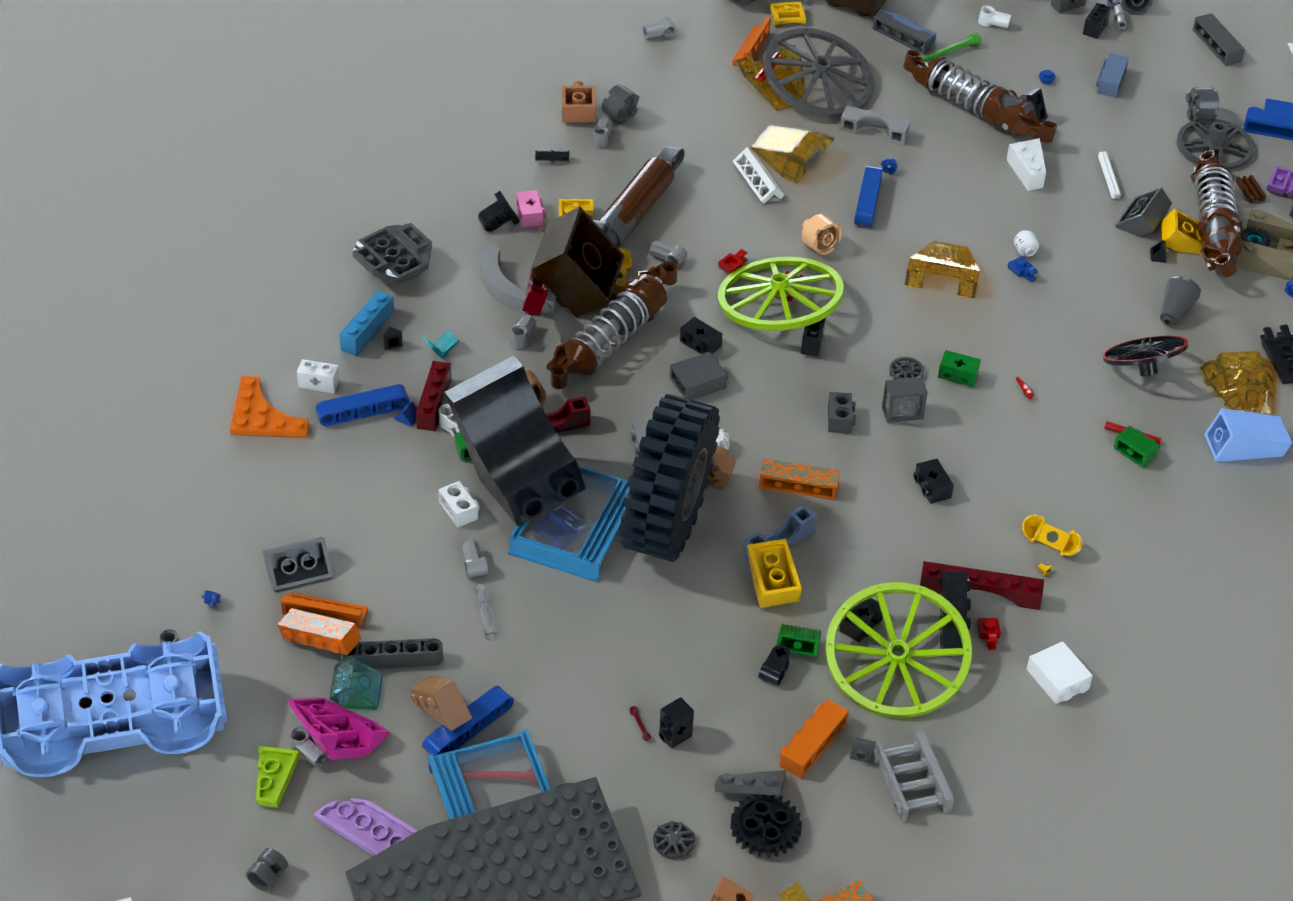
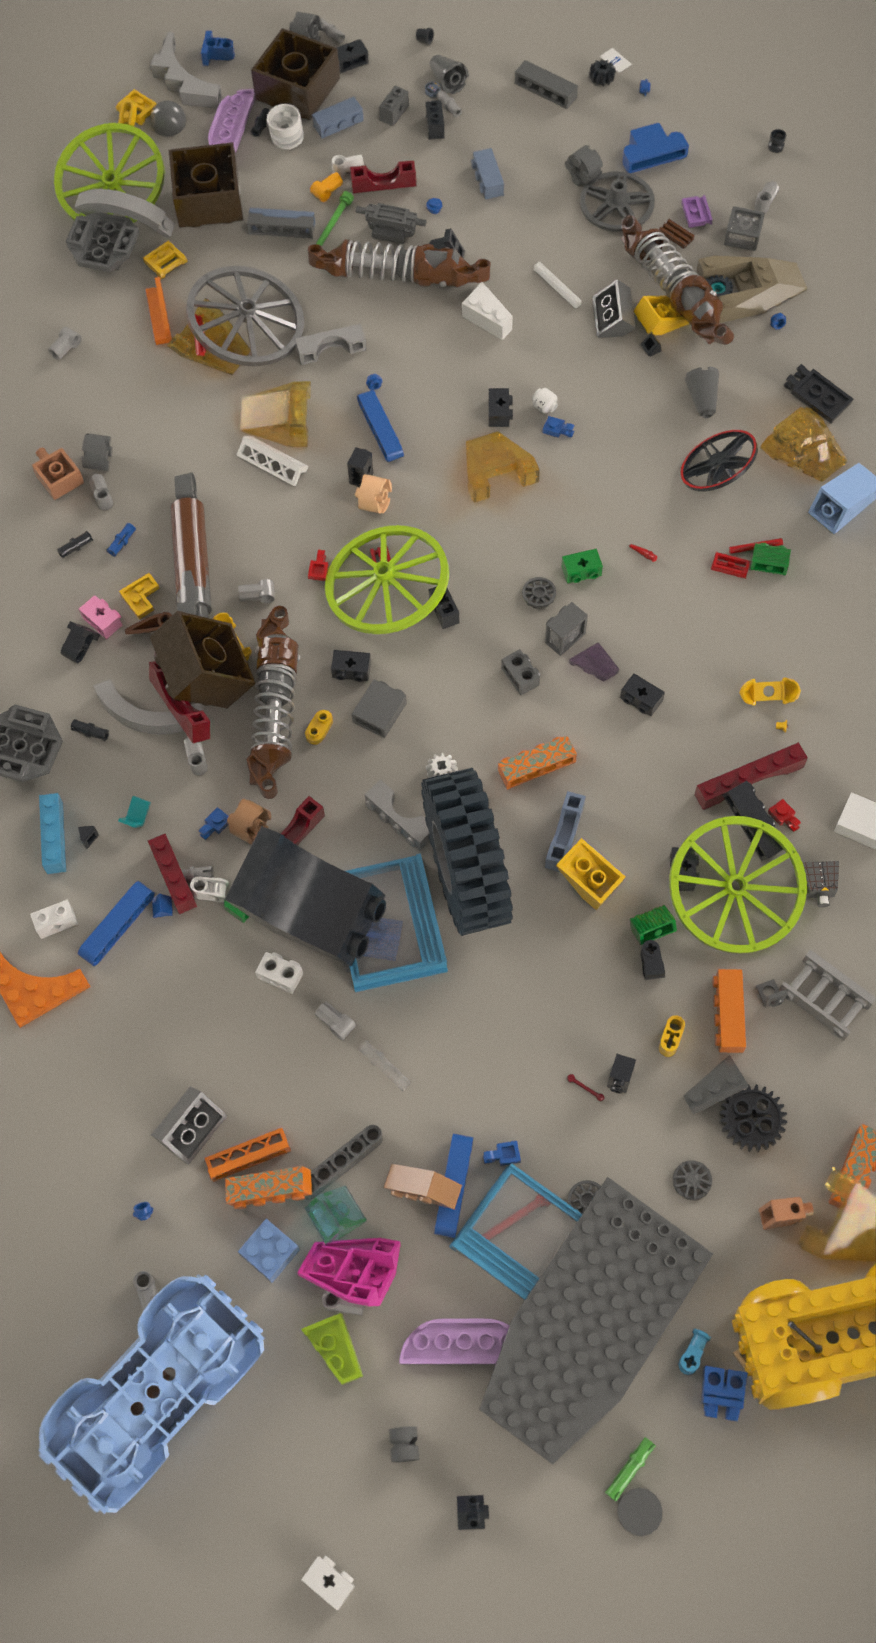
camera: 30 degrees left, 20 degrees up
(282, 678) = (269, 1250): none -> medium blue brick
(456, 275) = (89, 730): none -> black pin
(533, 724) = (505, 1153): none -> blue plate
(591, 170) = (114, 548): none -> blue pin
(638, 365) = (320, 726): none -> yellow plate
(745, 726) = (675, 1035): none -> yellow beam
(826, 204) = (358, 465): none -> black brick
(913, 440) = (595, 662): none -> clear purple wing
(960, 25) = (323, 189): none -> light orange piece
(980, 692) = (822, 880): none -> dark grey torso
(982, 230) = (498, 406): none -> black brick
(997, 67) = (391, 222): none -> dark grey piece
(998, 32) = (367, 181): none -> dark red arch
(1096, 436) = (730, 567): none -> red tile
(1277, 52) = (602, 72): none -> black gear

